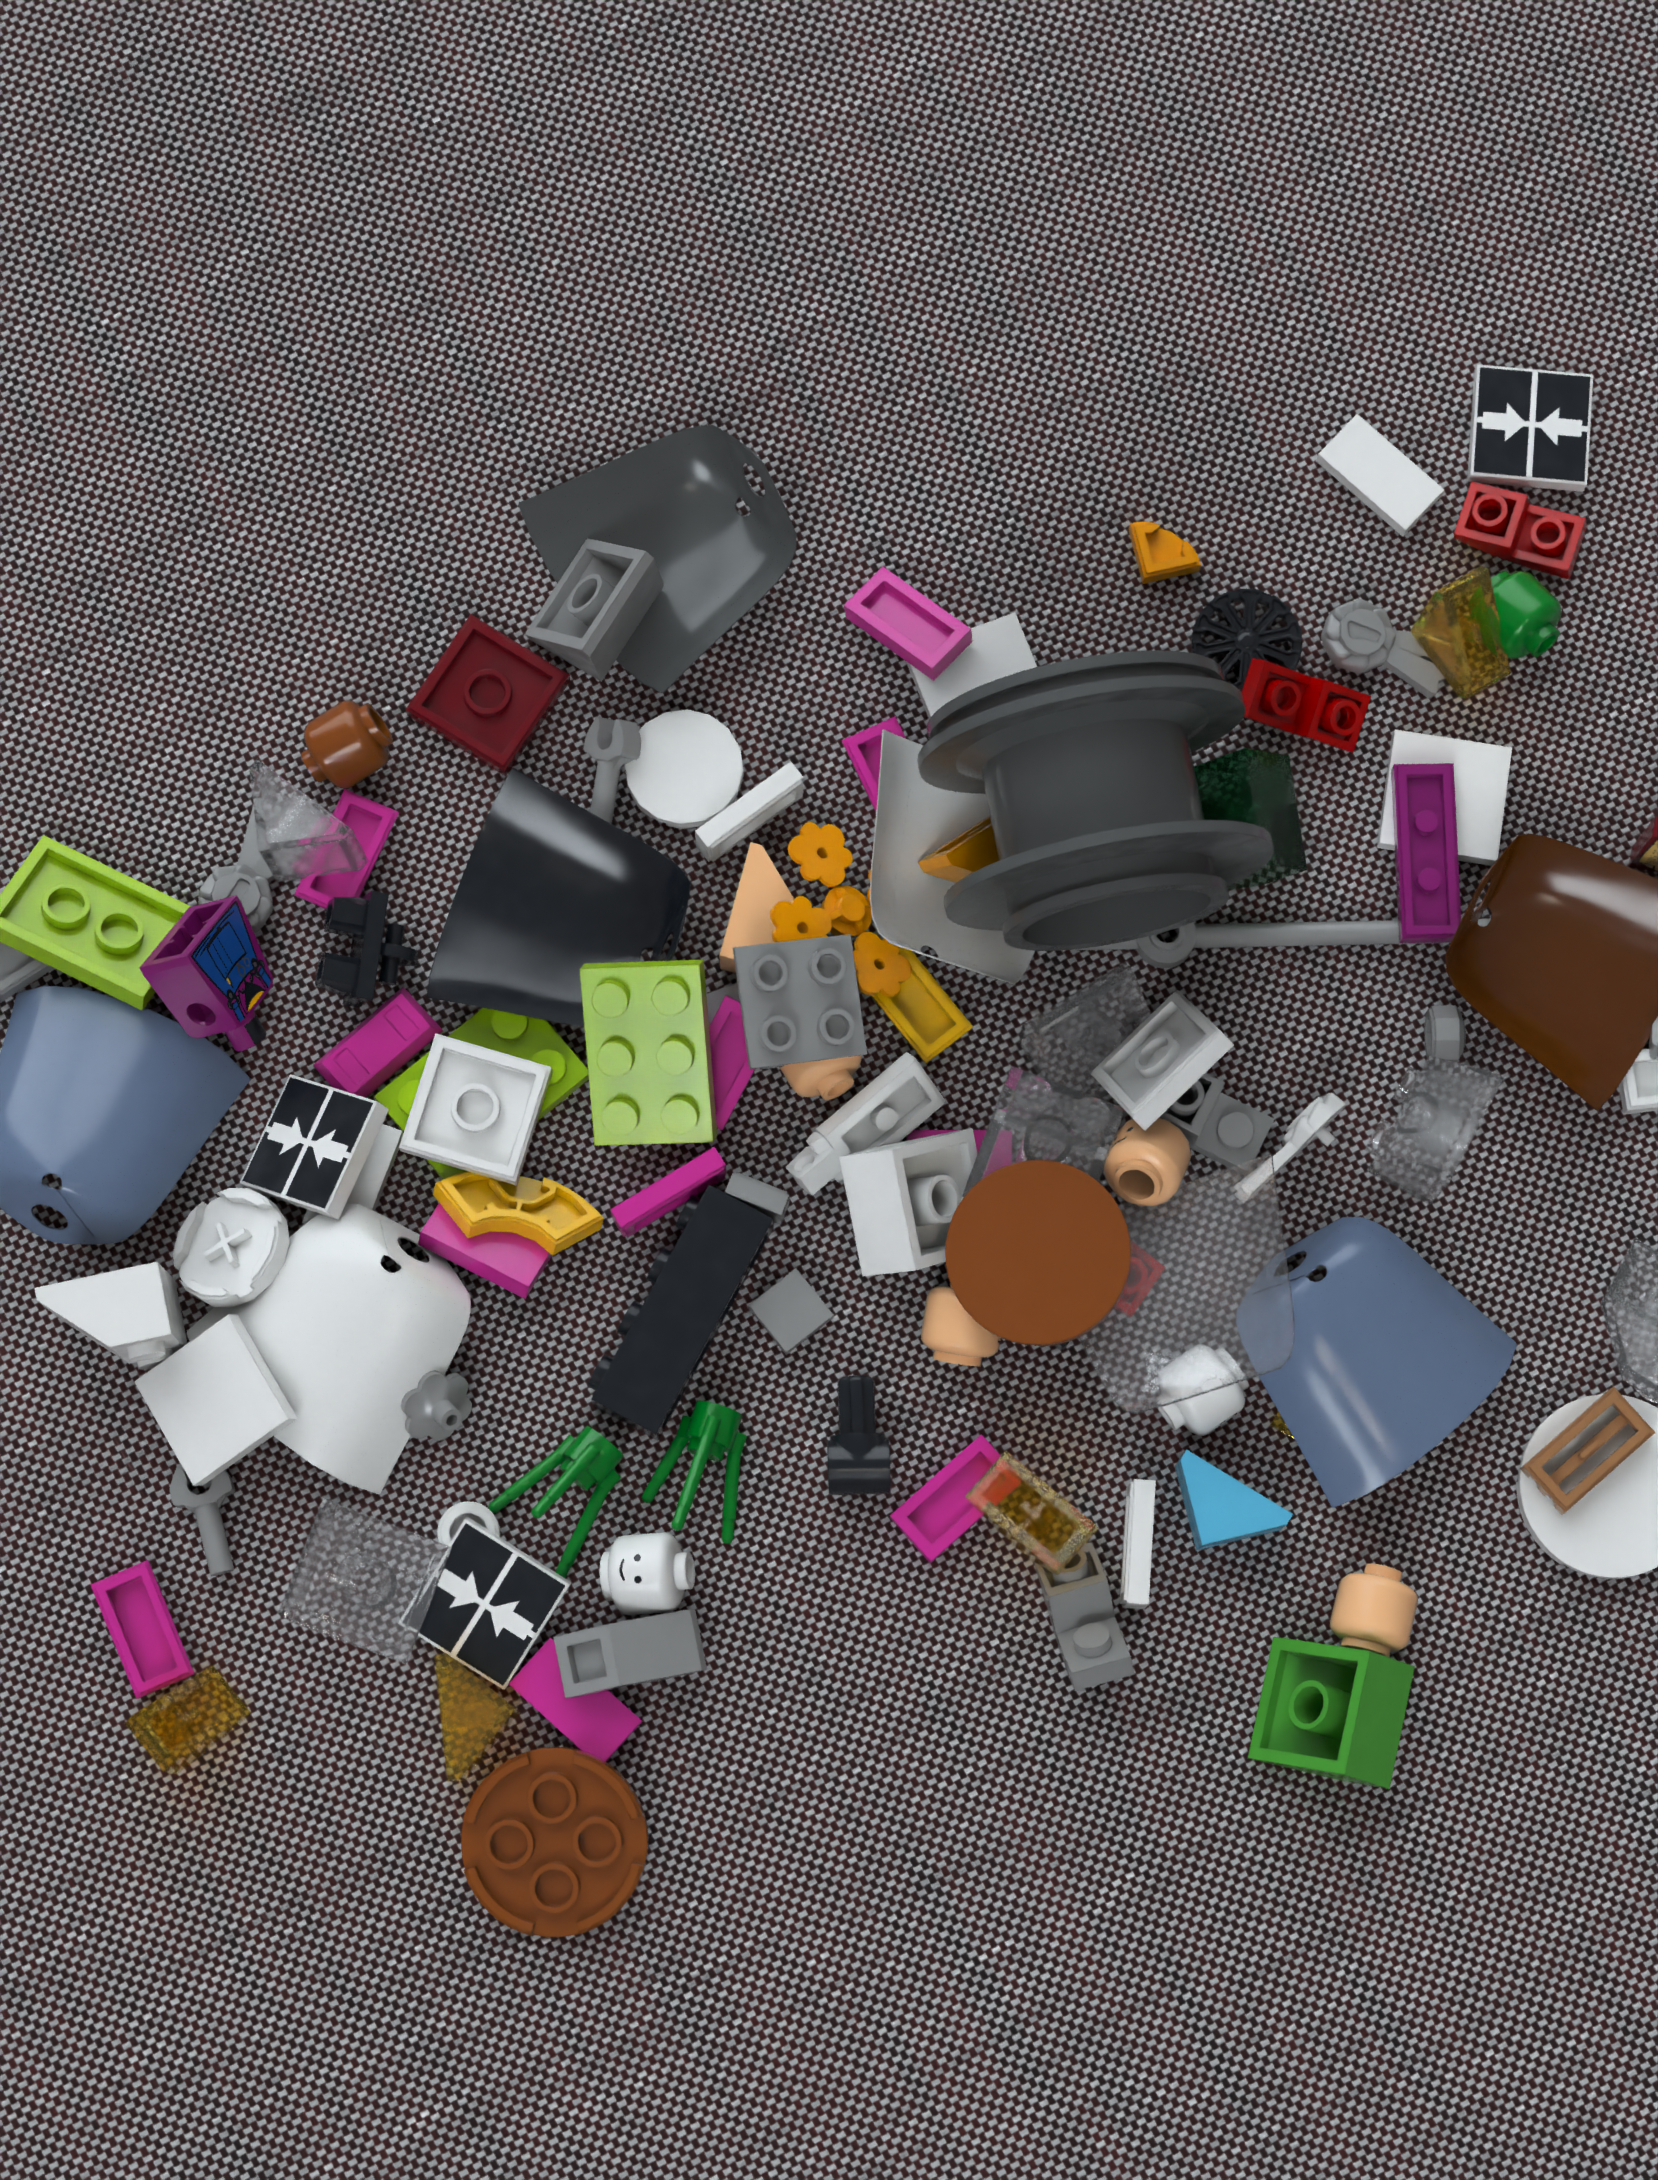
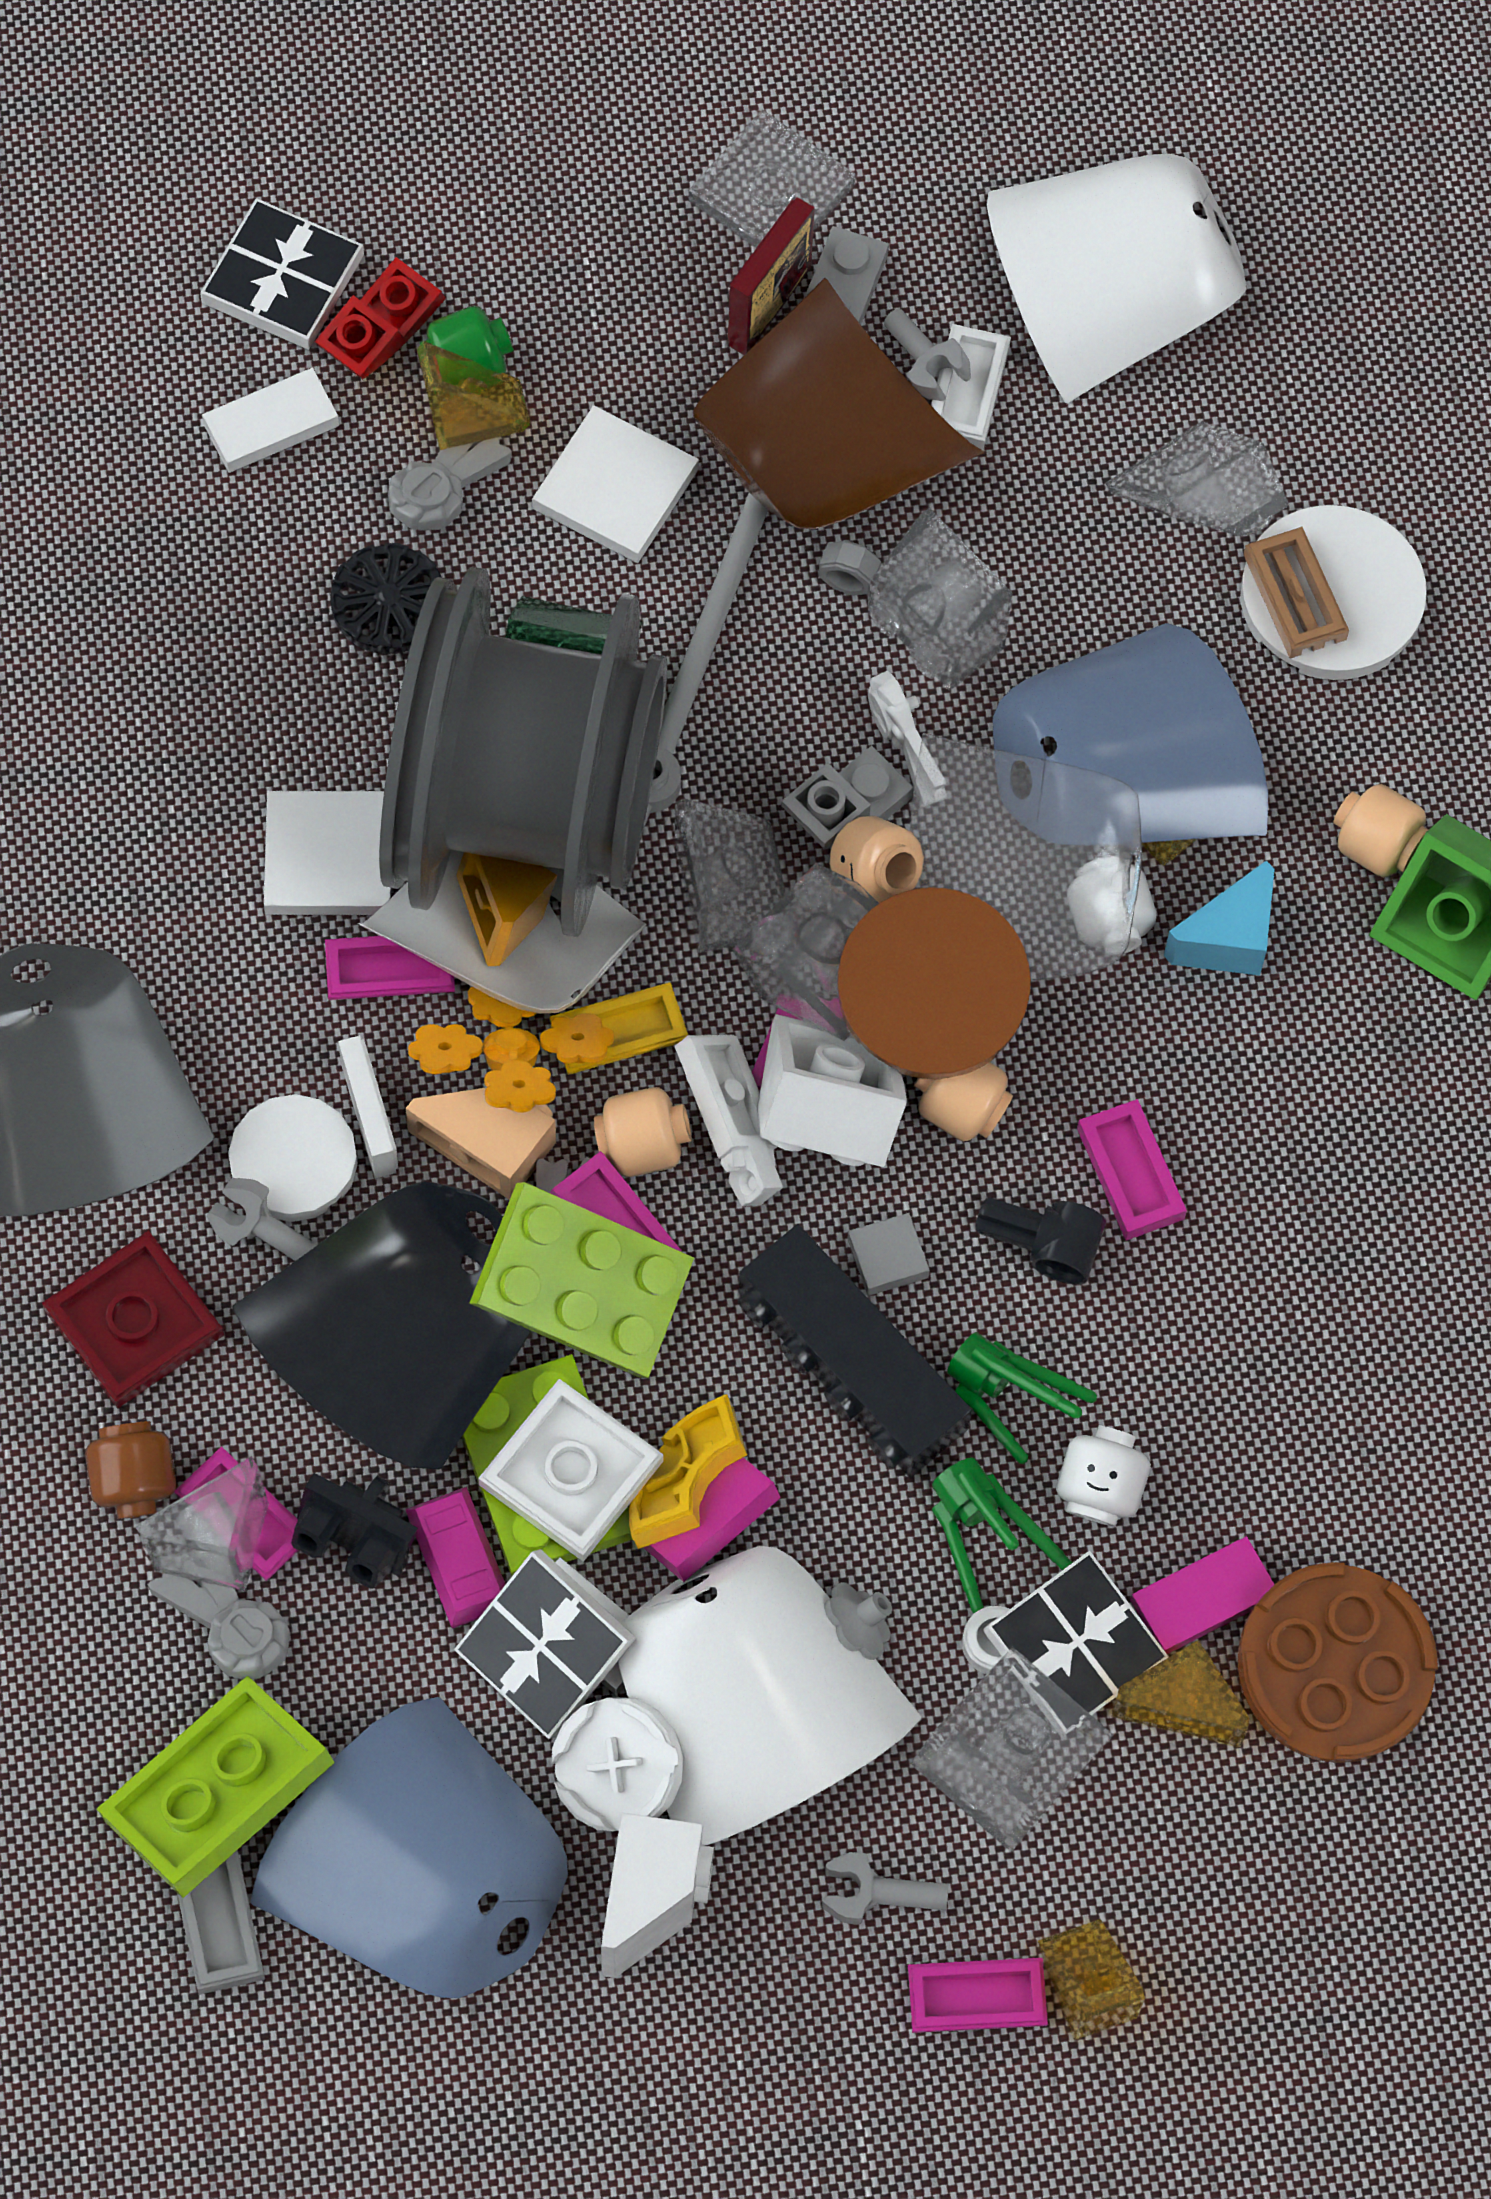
camera: 70 degrees left, 10 degrees down
(212, 973) = (324, 1674): magenta torso -> none
(215, 1400) = (774, 1827): white tile -> none
(597, 605) = (86, 1176): light grey slope -> none
(630, 1653) = (1178, 1518): light grey slope -> none
(669, 1192) = (727, 1320): dark pink tile -> none
(759, 1196) = (763, 1233): light grey tile -> none
(799, 1001) = (593, 1113): light grey hinge -> none
(908, 623) = (236, 890): dark pink tile -> none
(1031, 1514) = (1181, 1094): clear yellow slope -> none
(1085, 1621) = (1280, 1095): light grey slope -> none
(1137, 1544) = (1239, 1015): white tile -> none
(1161, 552) = (261, 641): light orange tile -> none
(1161, 1059) = (785, 805): white tile -> none
(1304, 705) = (486, 544): red slope -> none
(1426, 852) = (667, 514): magenta tile -> none

